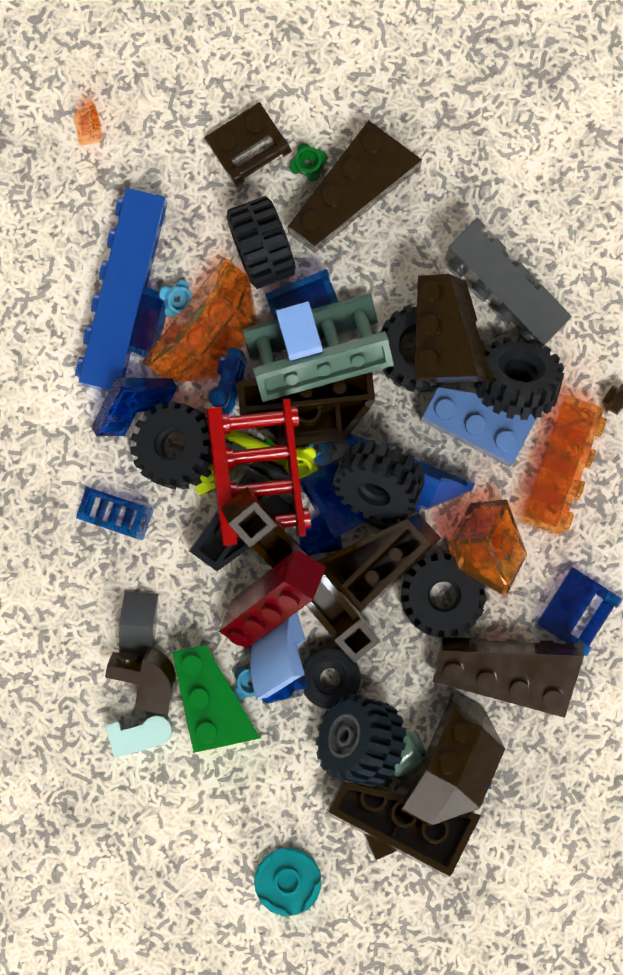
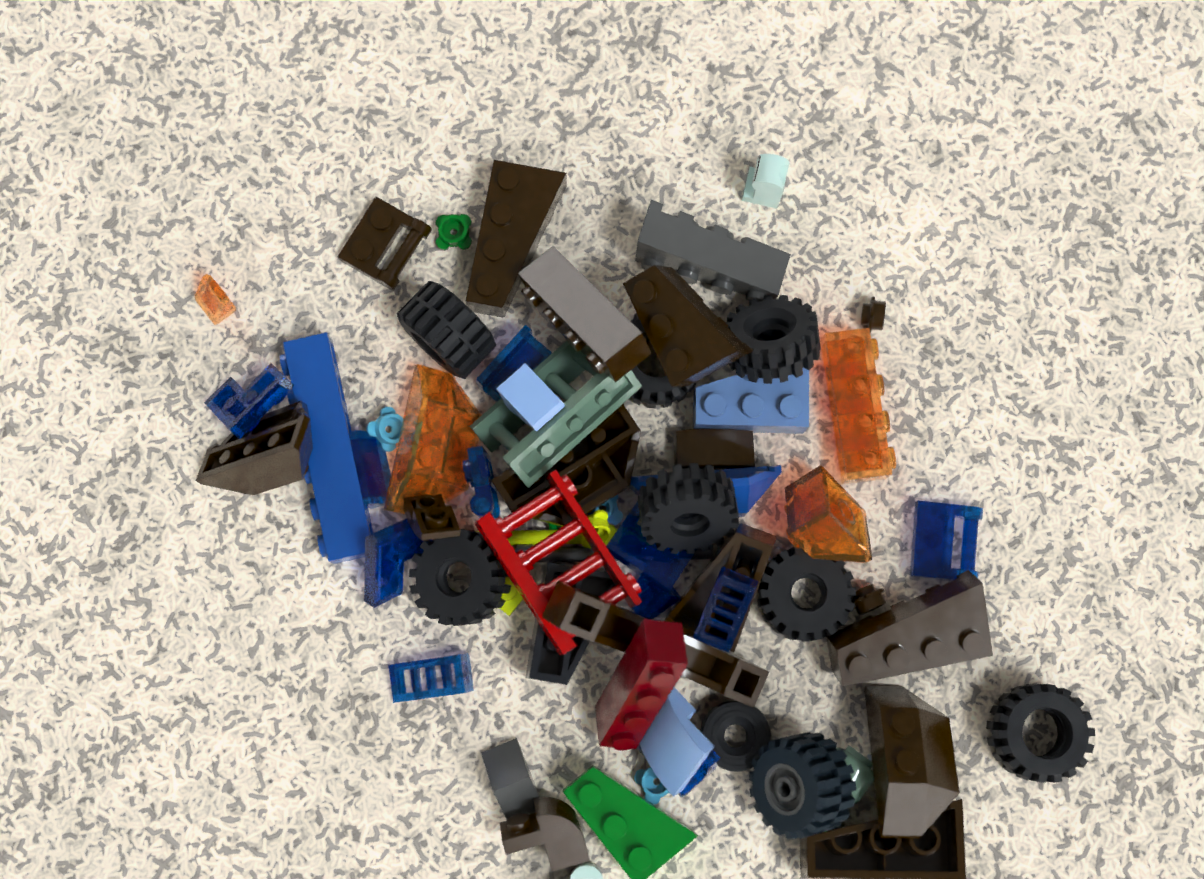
camera: 35 degrees left, 5 degrees down
(67, 269) = (263, 458): none -> dark brown wedge
(70, 226) = (243, 408): none -> clear blue plate
(174, 387) = (430, 517): none -> dark brown slope
(373, 285) = (583, 315): none -> wedge
(387, 558) = (737, 583): none -> clear blue slope
(429, 444) = (714, 447): none -> dark brown slope
(491, 625) = (868, 599): none -> dark brown plate
(584, 245) = (766, 181): none -> light aqua leg
(601, 802) = (1071, 732): none -> black tyre

